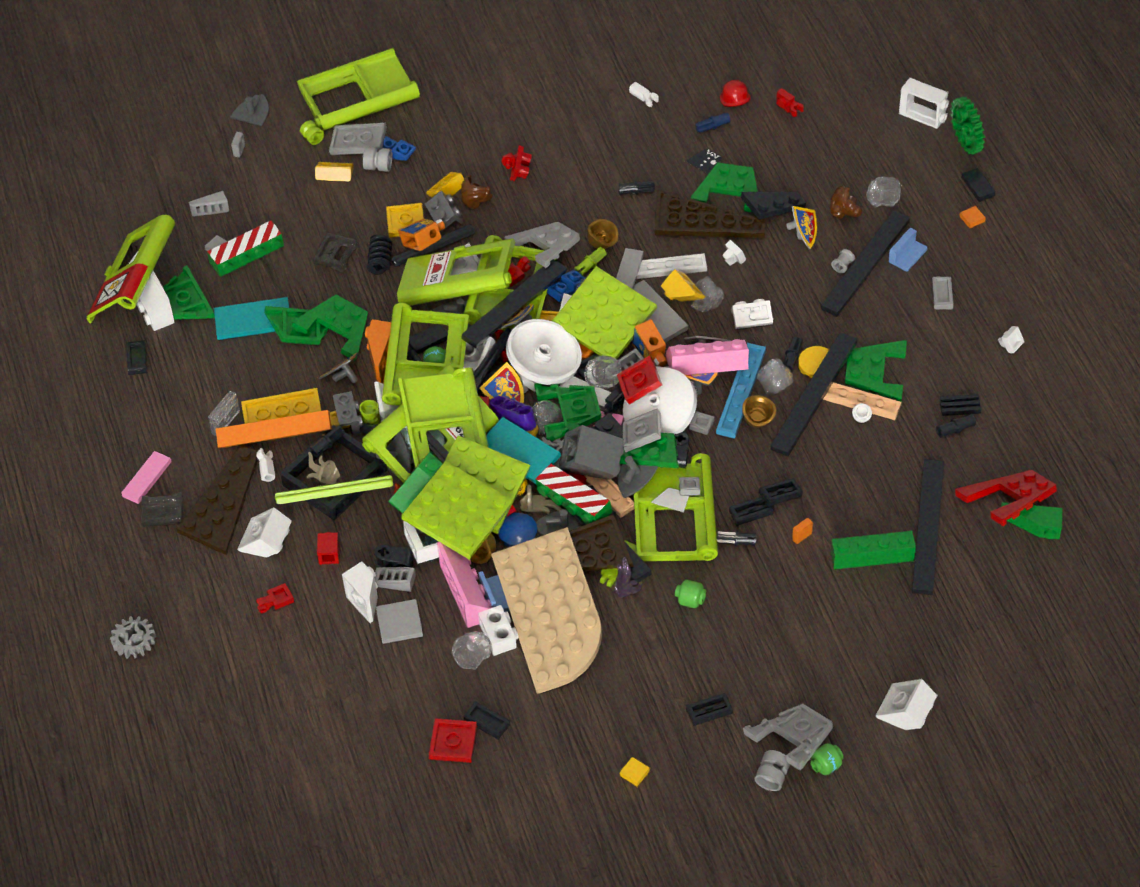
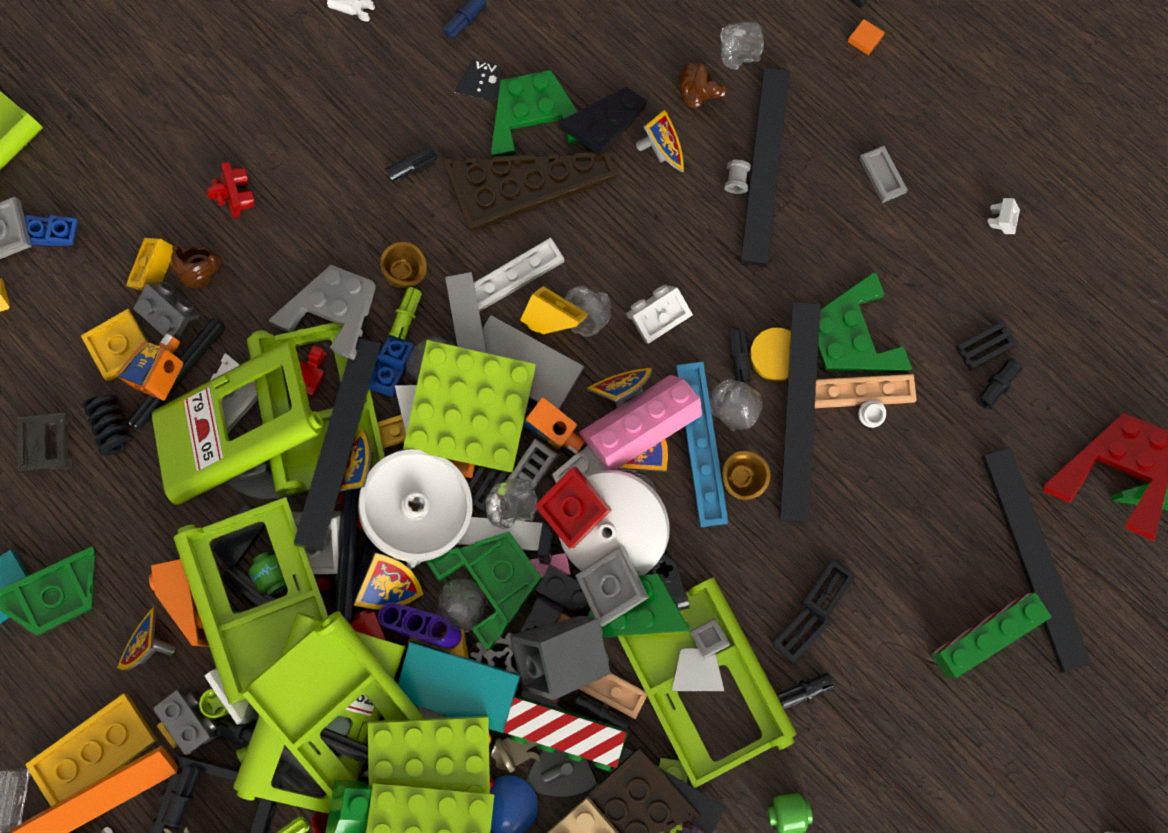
camera: 25 degrees left, 25 degrees up
(341, 318) = (101, 555): green wing -> none
(377, 158) = (27, 263): light grey wheel -> none
(634, 476) = (631, 658): dark grey shield -> none
(701, 423) = (677, 516): light grey tile -> none
(733, 254) = (590, 224): white tile -> none
(802, 530) = (885, 642): orange tile -> none
(906, 251) = (811, 127): medium blue panel -> none

